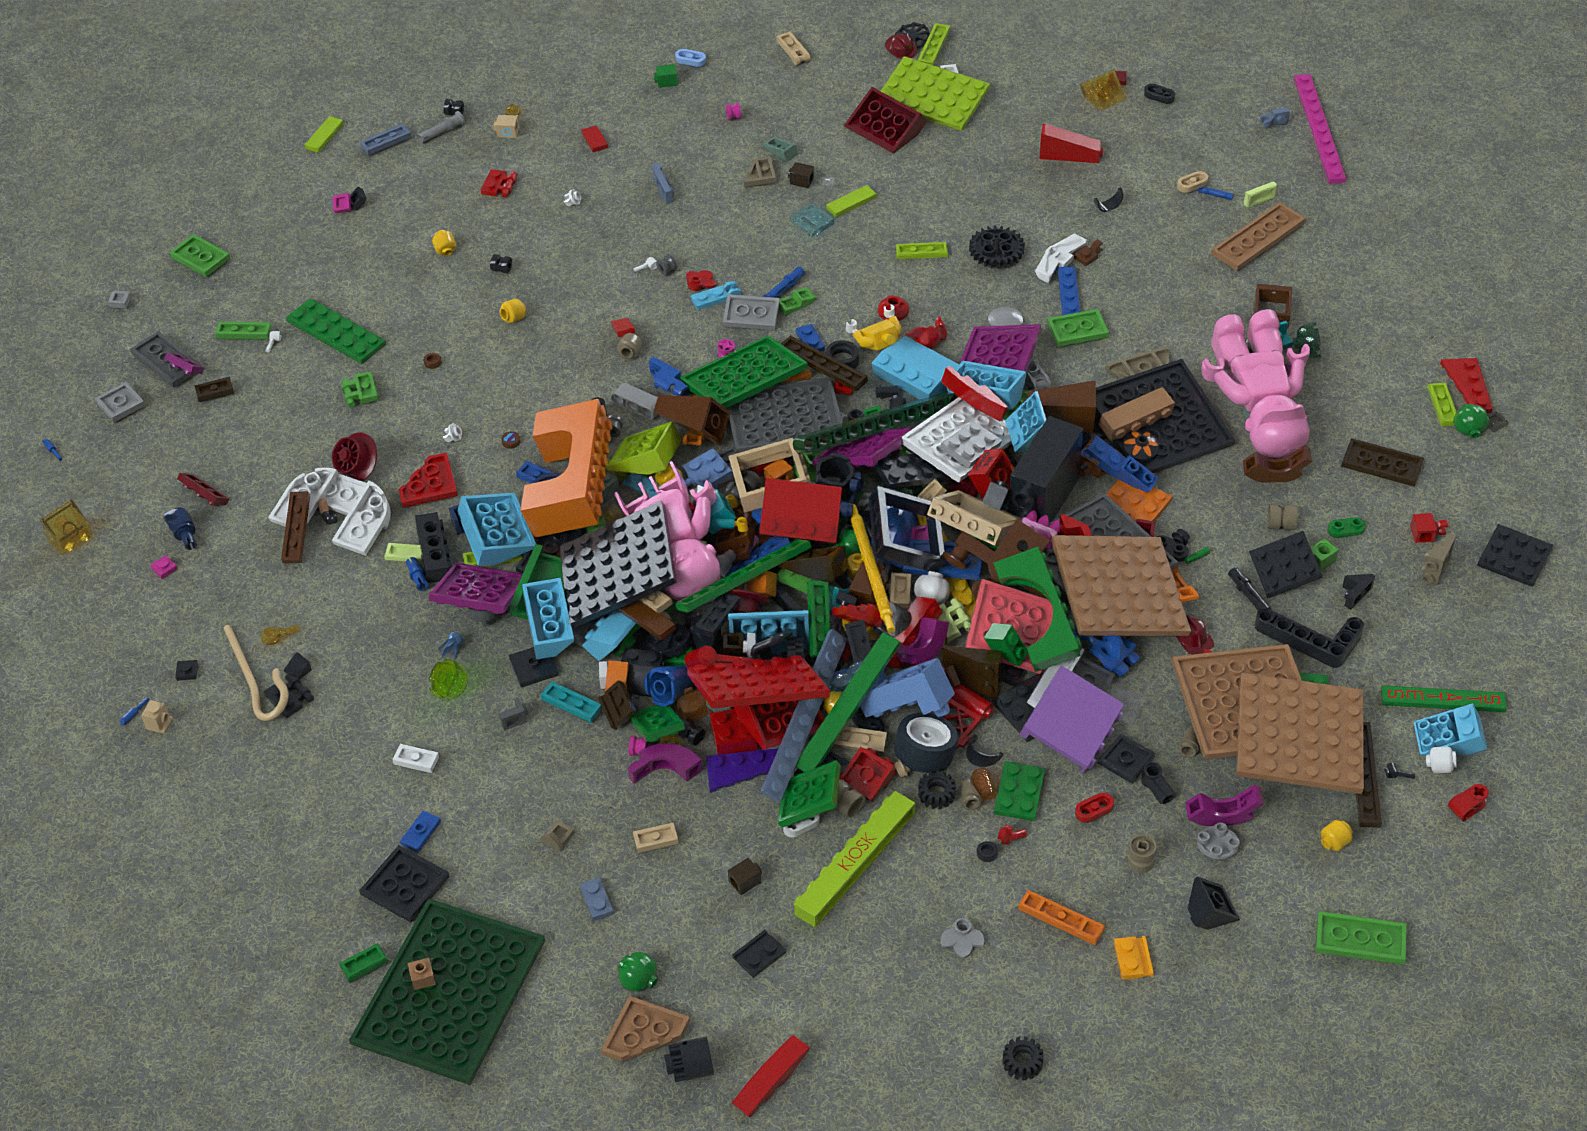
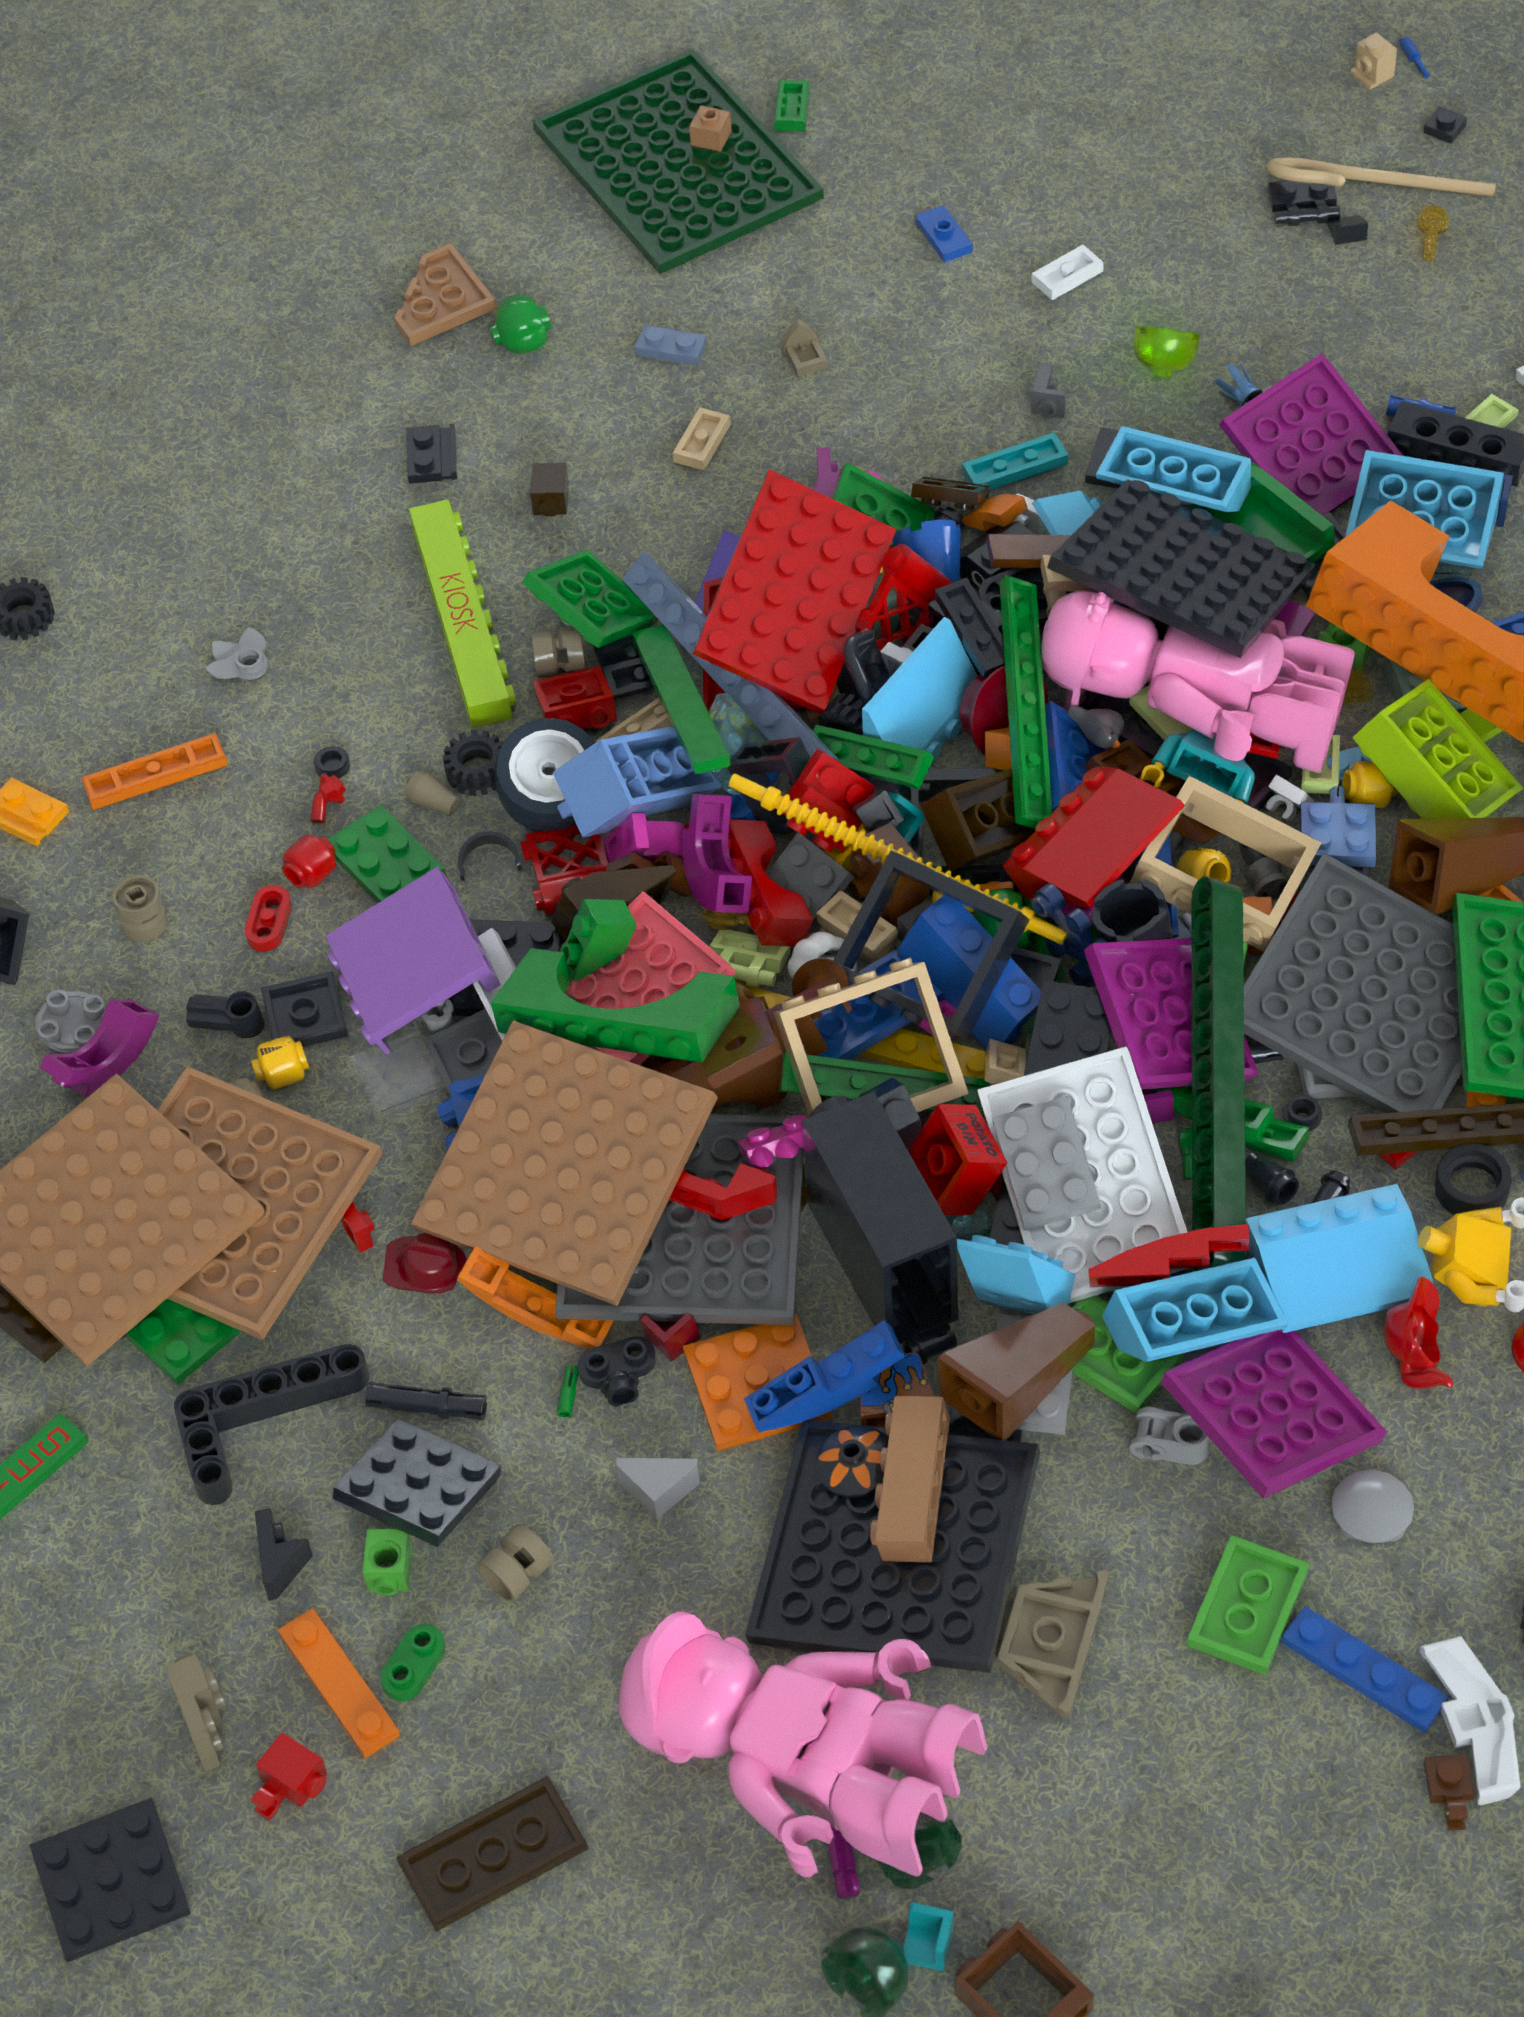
camera: 130 degrees right, 5 degrees up
(404, 883) = (873, 183): black plate -> none
(689, 1059) = (347, 304): black gear -> none
(771, 1075) = (256, 370): red slope -> none
(983, 783) = (431, 819): clear orange piece -> none
(1052, 809) = (309, 861): none -> red head
(1161, 742) = (280, 1062): none -> yellow head
(1204, 499) = (658, 1481): none -> light grey slope
(1277, 470) = (603, 1662): reddish brown arch -> none
(1377, 543) = (339, 1683): none -> orange plate

